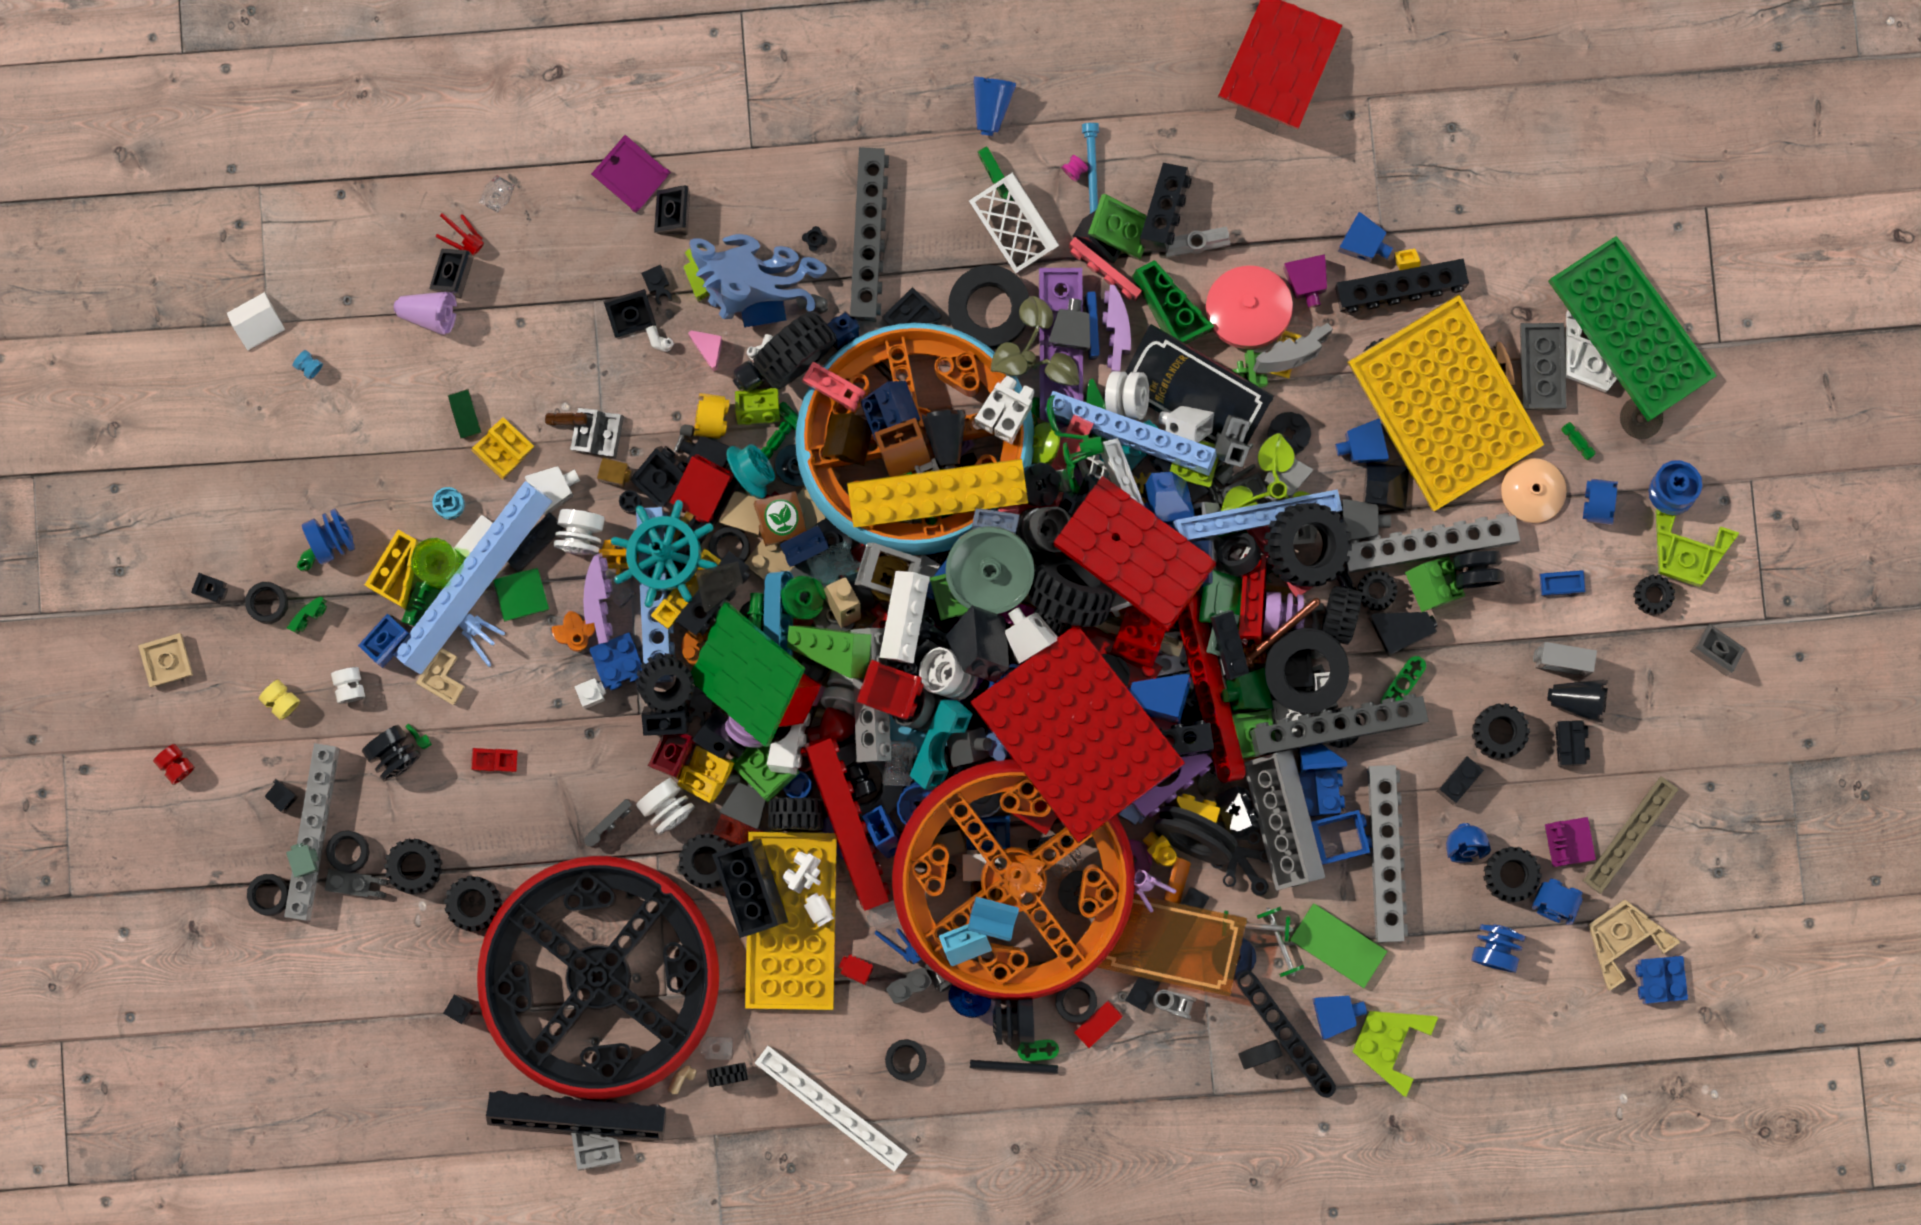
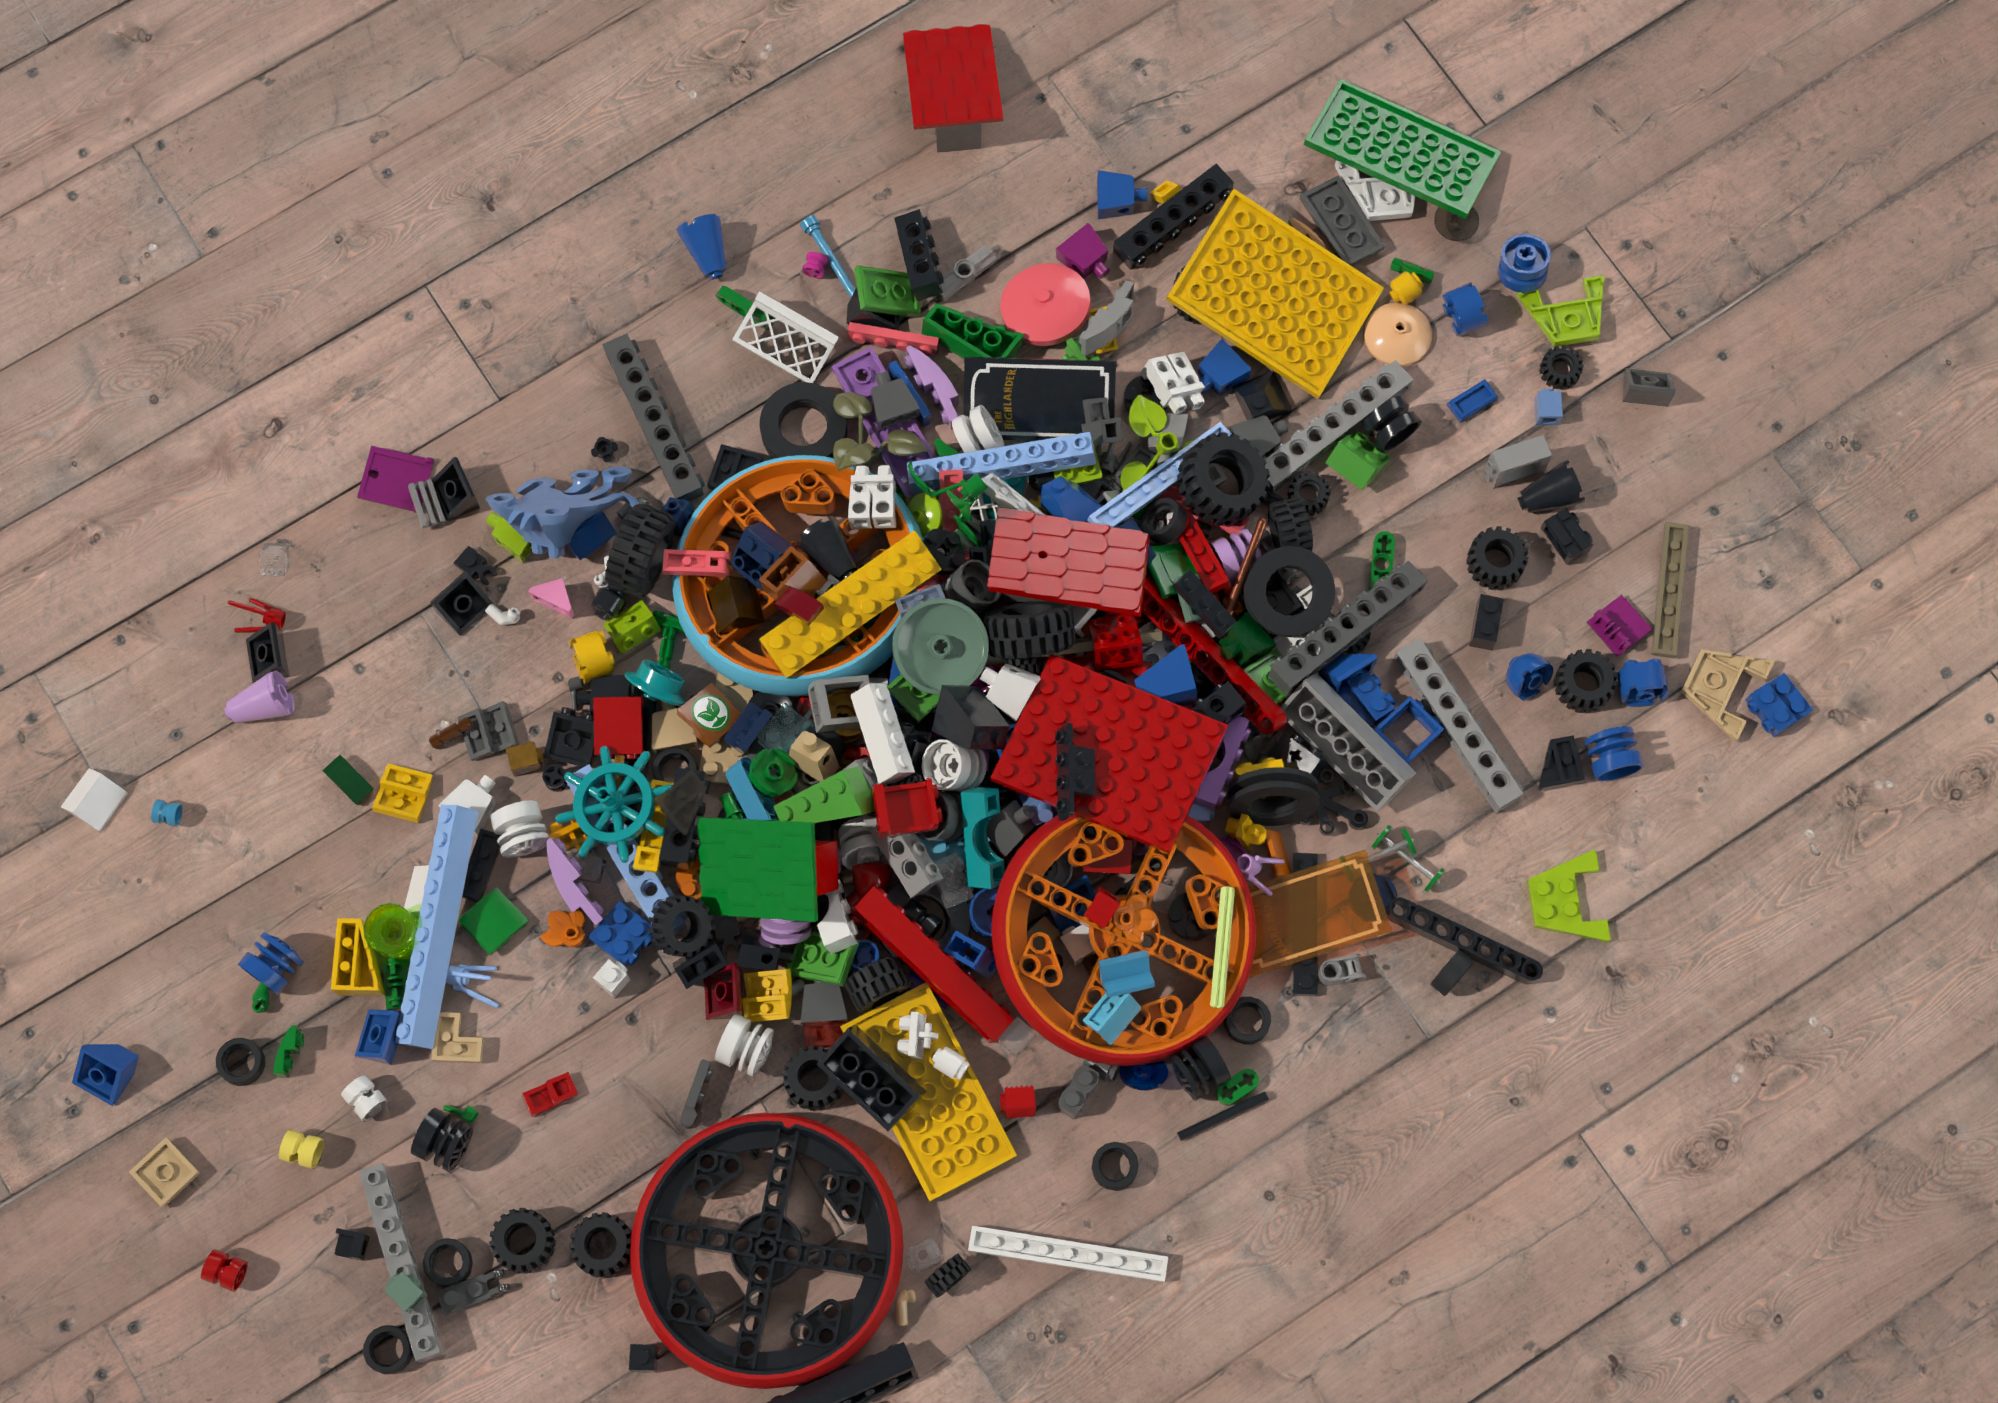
camera: 30 degrees left, 10 degrees down
(158, 553) = (104, 1070): none -> blue slope
(200, 588) = (184, 1082): black brick -> none
(448, 503) = (375, 871): medium azure wheel -> none
(647, 191) = (421, 486): none -> light grey tile
(783, 463) = (685, 663): black dish -> none
(894, 474) = (799, 604): none -> dark red slope
(911, 953) = (1064, 1059): blue plant -> none
(1002, 856) = (1102, 908): none -> red panel
(1037, 736) = (1074, 771): none -> black bracket
(1083, 937) = (1222, 947): none -> yellowish green axle
(1098, 1024) = (1281, 1030): red slope -> none
(1188, 422) = (1048, 427): white torso -> none
(1317, 435) = (1174, 382): none -> white hips
(1337, 1014) = (1499, 897): blue torso -> none
(1338, 945) = (1463, 834): bright green tile -> none
(1402, 630) = (1352, 515): black slope -> none
(1451, 932) = (1561, 764): none -> black wing
(1562, 455) = (1406, 288): none -> yellow head
(1622, 623) = (1548, 407): none -> medium blue brick

